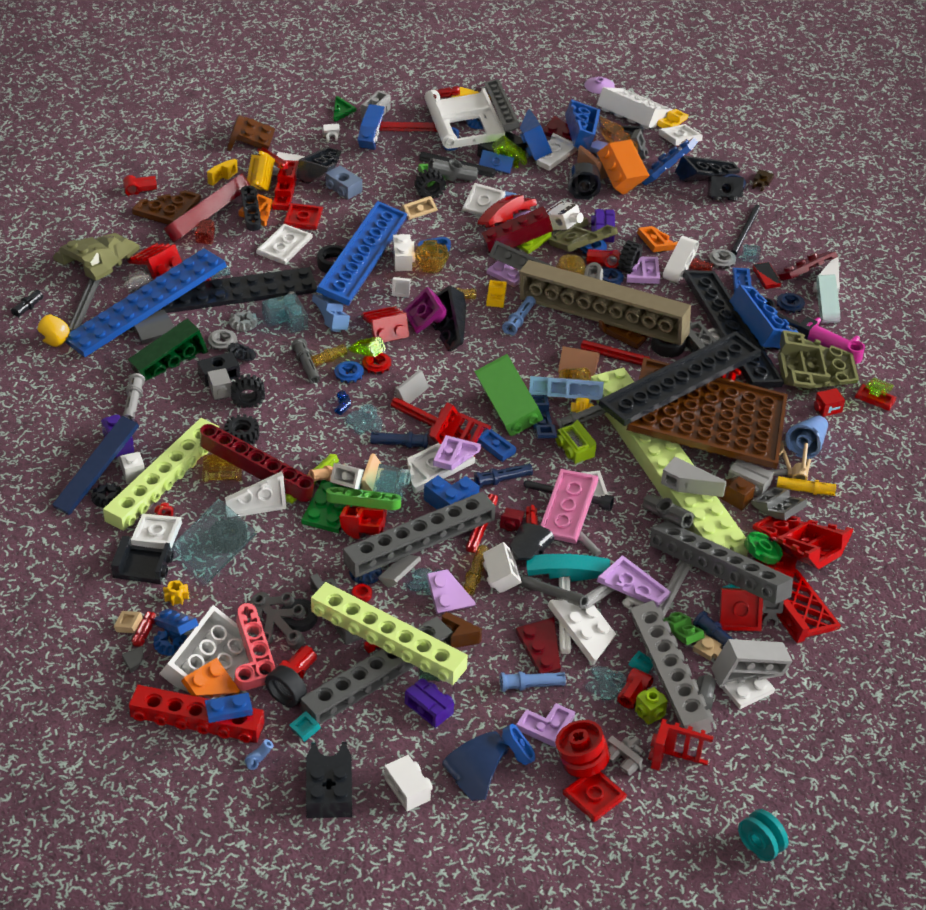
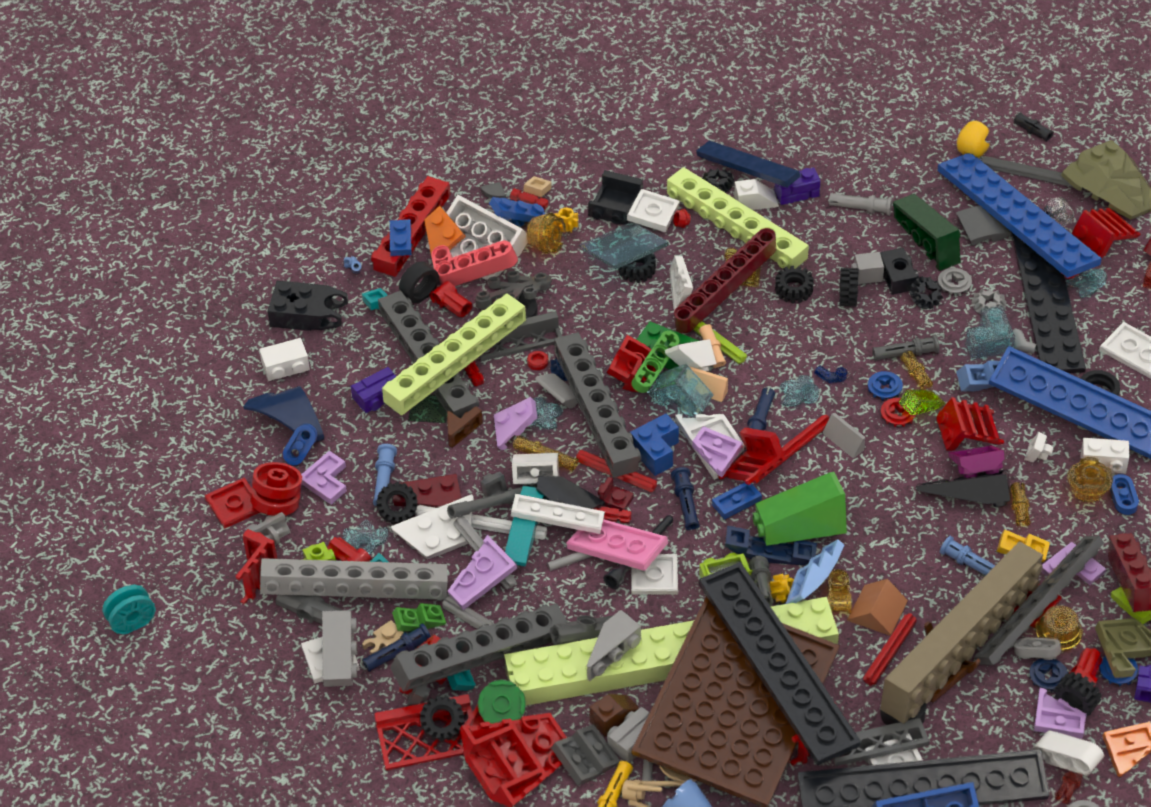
camera: 105 degrees right, 5 degrees up
(201, 597) = (545, 233): none -> clear yellow cone
(524, 598) = (493, 484): none -> flat silver tile
(556, 539) = (557, 513): none -> white tile
(569, 657) = (396, 489): none -> black tyre
(801, 584) = (434, 705): none -> black tyre

